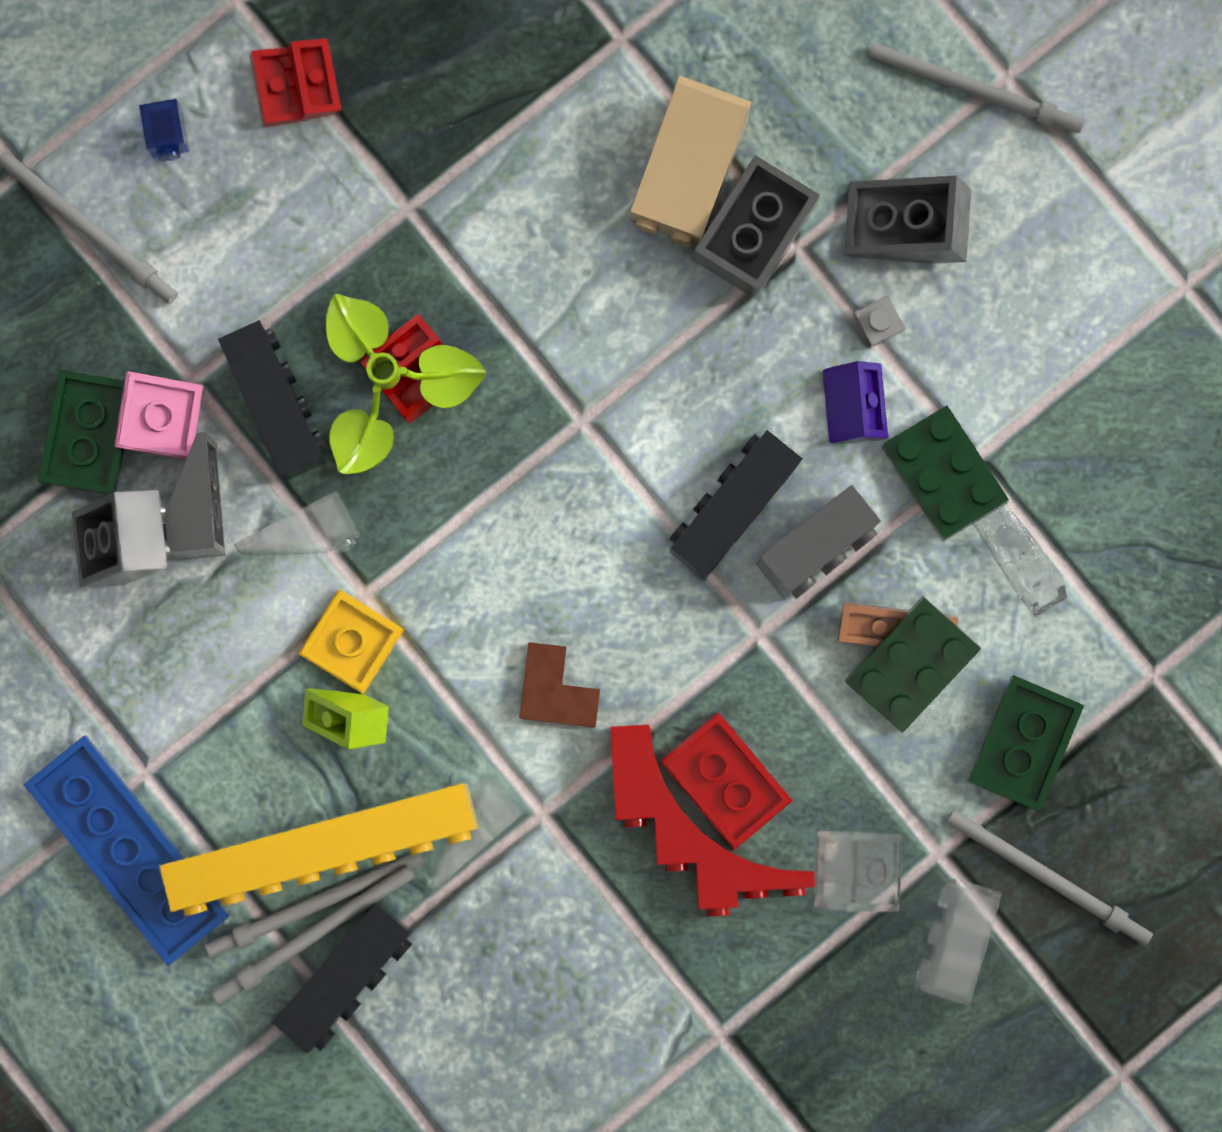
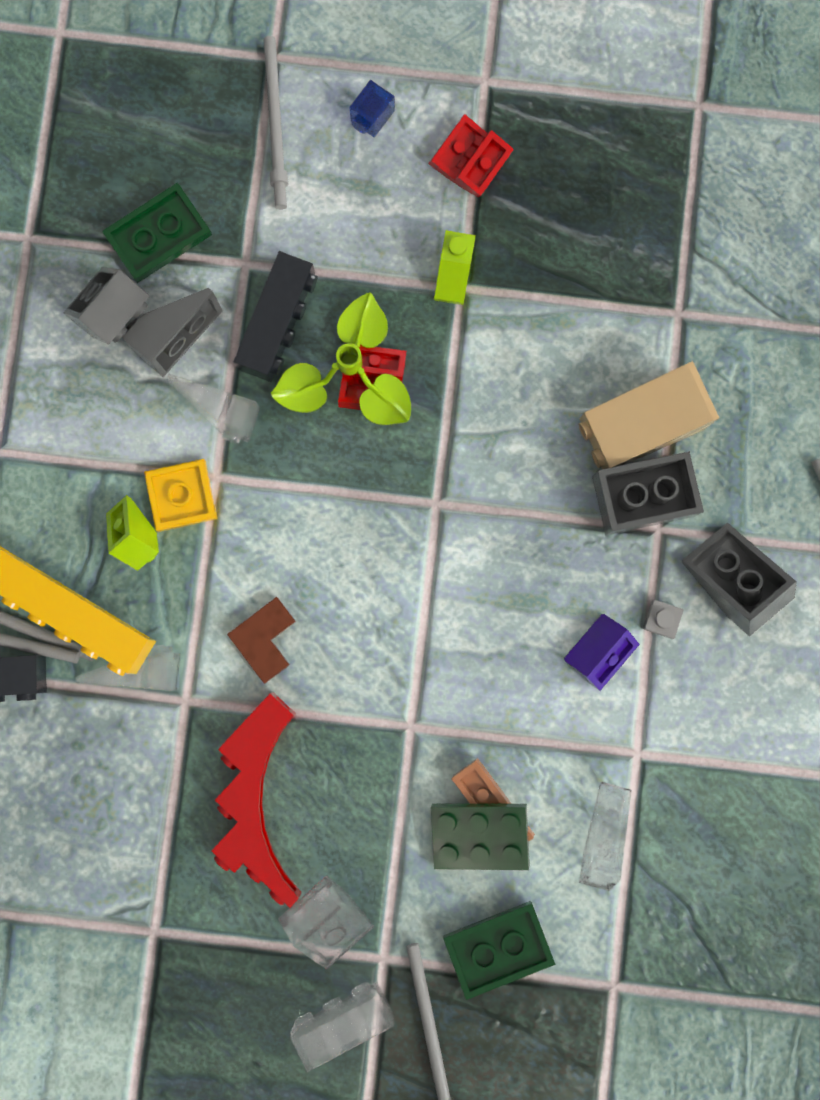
camera: 45 degrees right, 0 degrees up
(158, 416) = (204, 260): bright pink tile -> none
(385, 197) = (454, 267): none -> lime slope
(726, 781) = (305, 791): red tile -> none
(735, 504) = (473, 639): black brick -> none
(819, 544) = (497, 713): dark grey brick -> none
(945, 473) = (612, 745): dark green plate -> none

